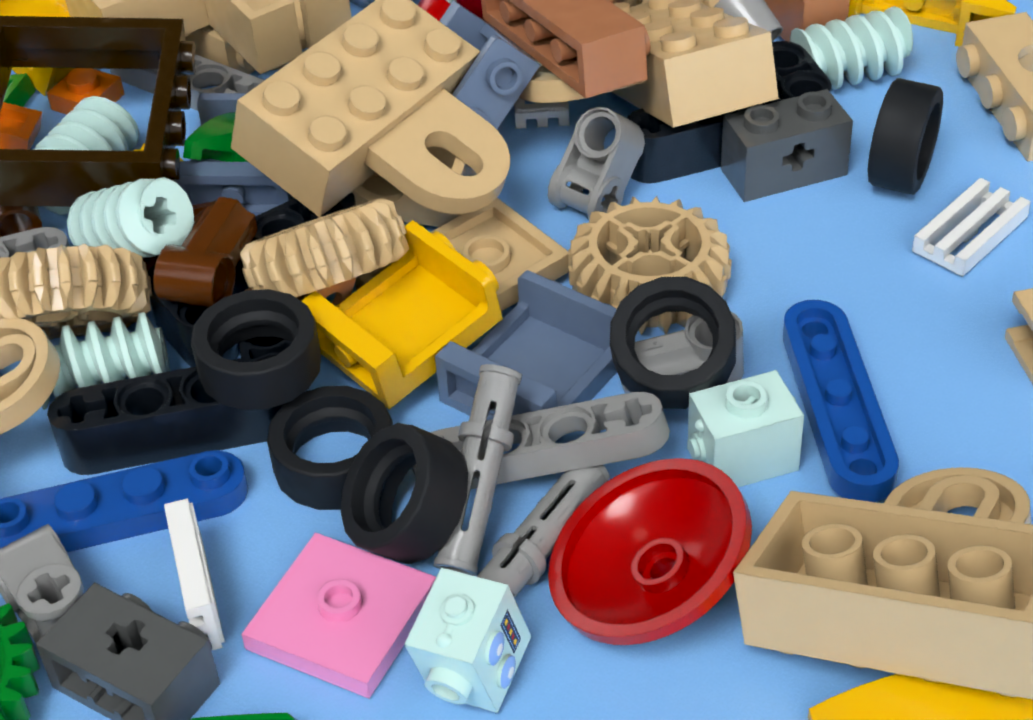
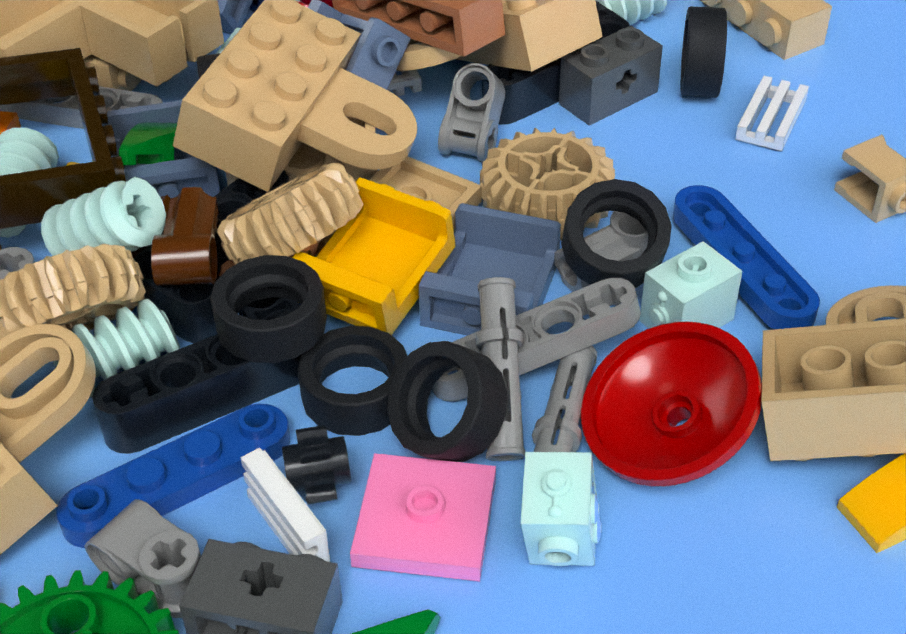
camera: 20 degrees left, 0 degrees up
(245, 530) = (316, 464): none -> black gear

